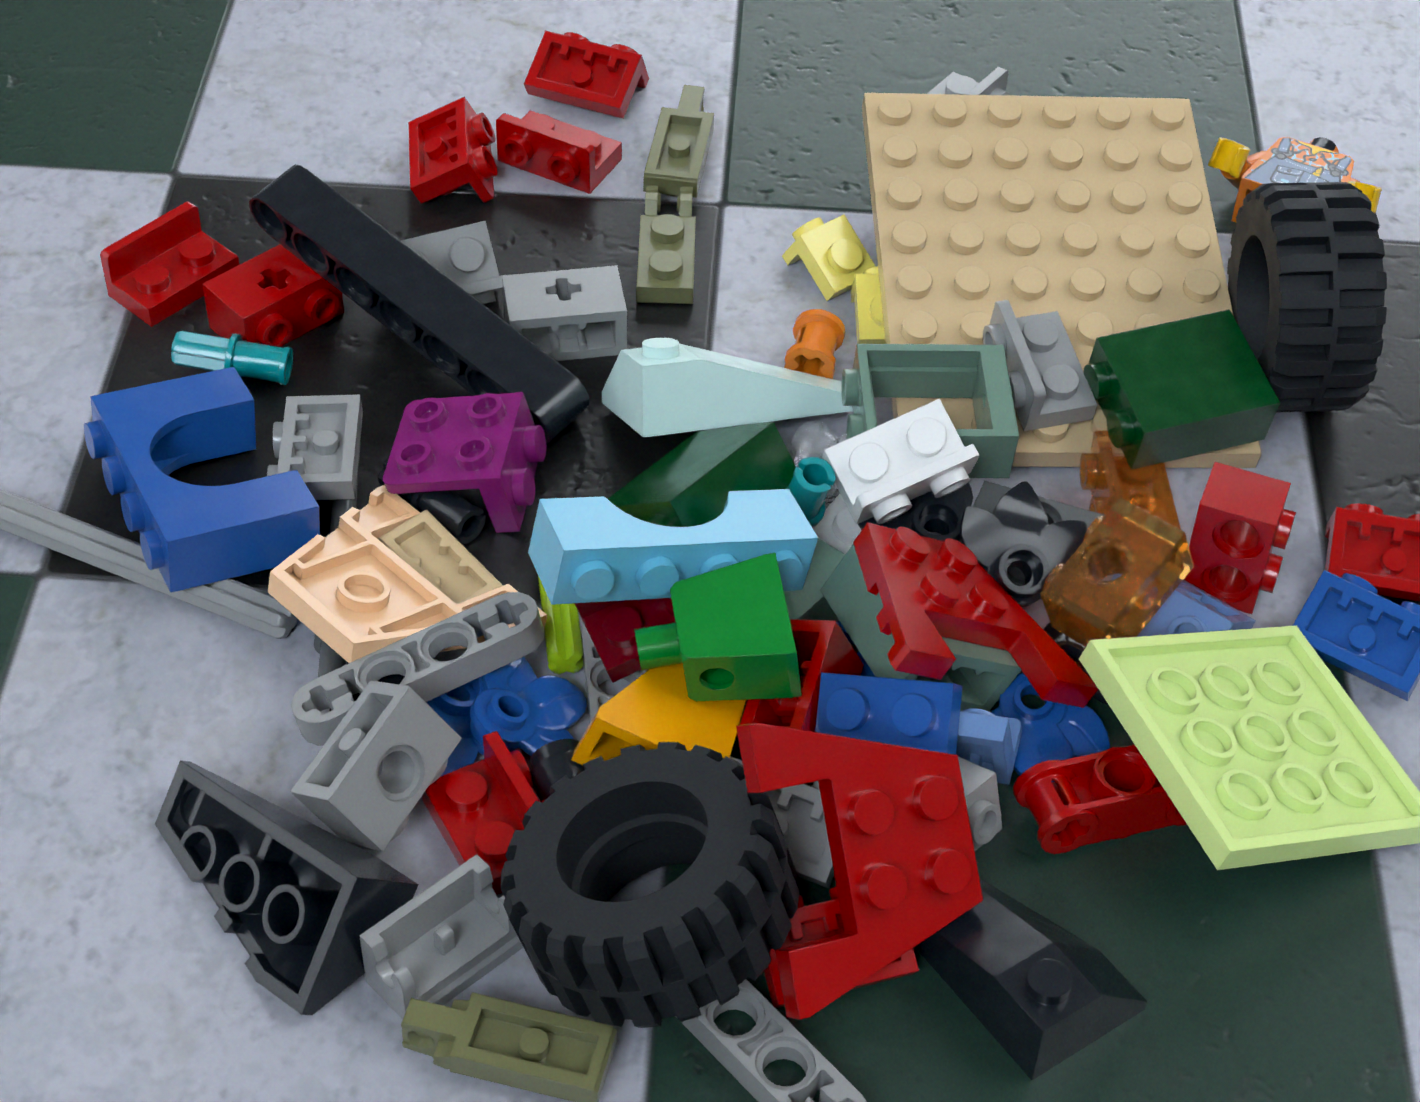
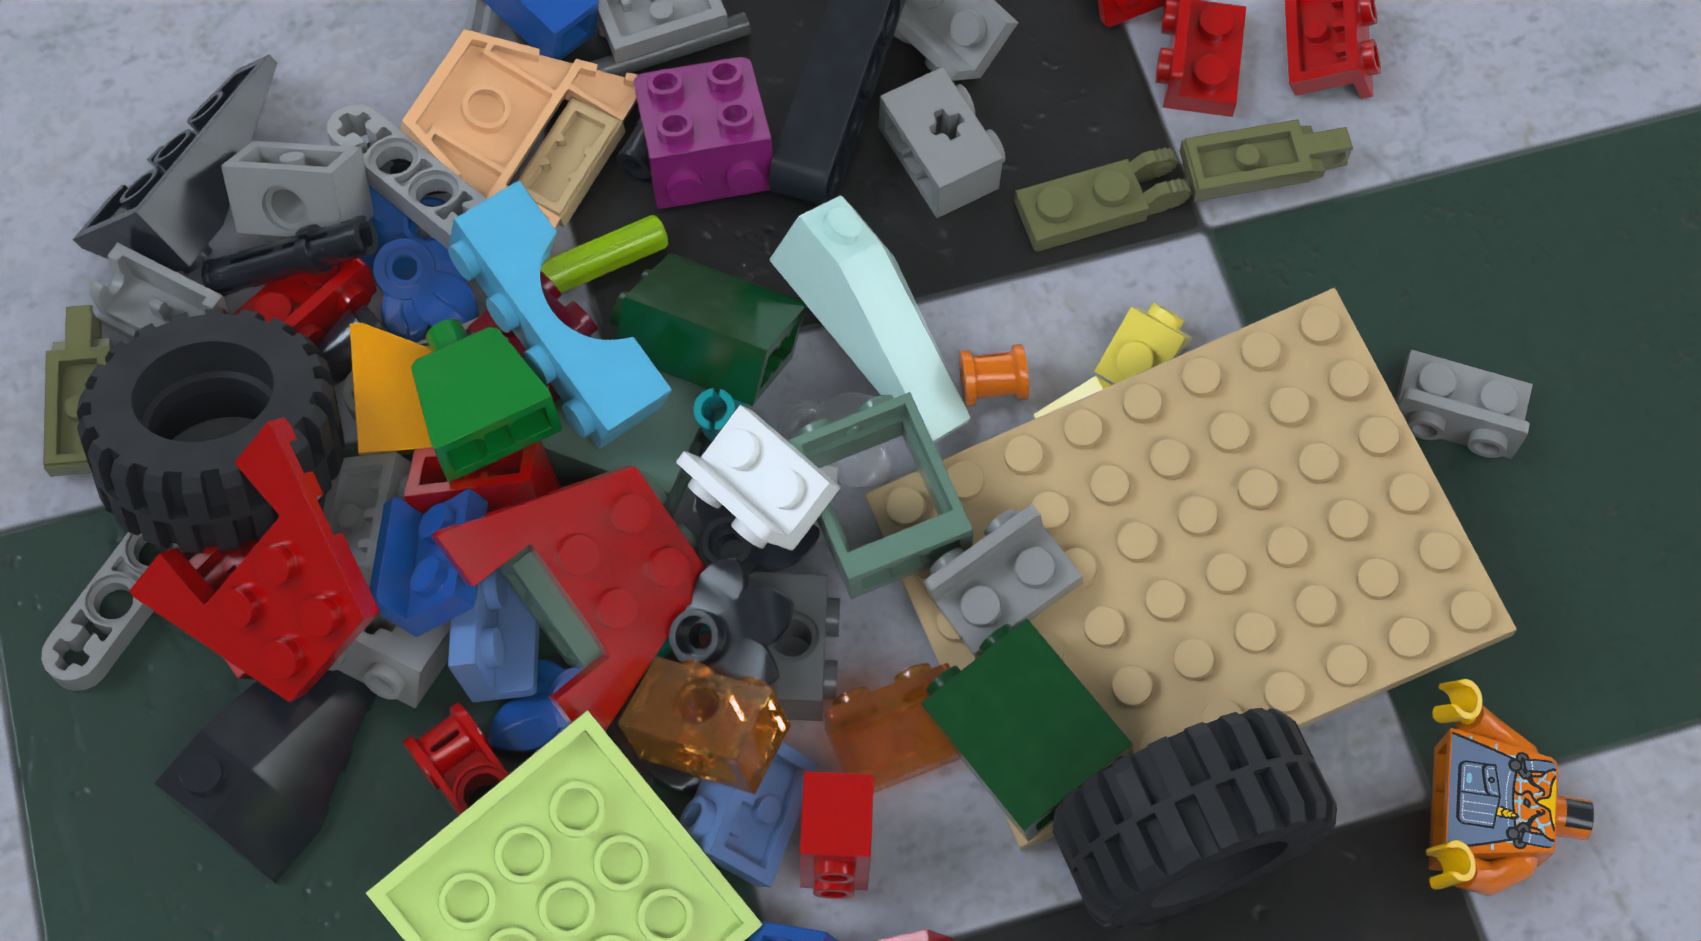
camera: 70 degrees right, 20 degrees up
(455, 786) = (308, 251): none -> black pin

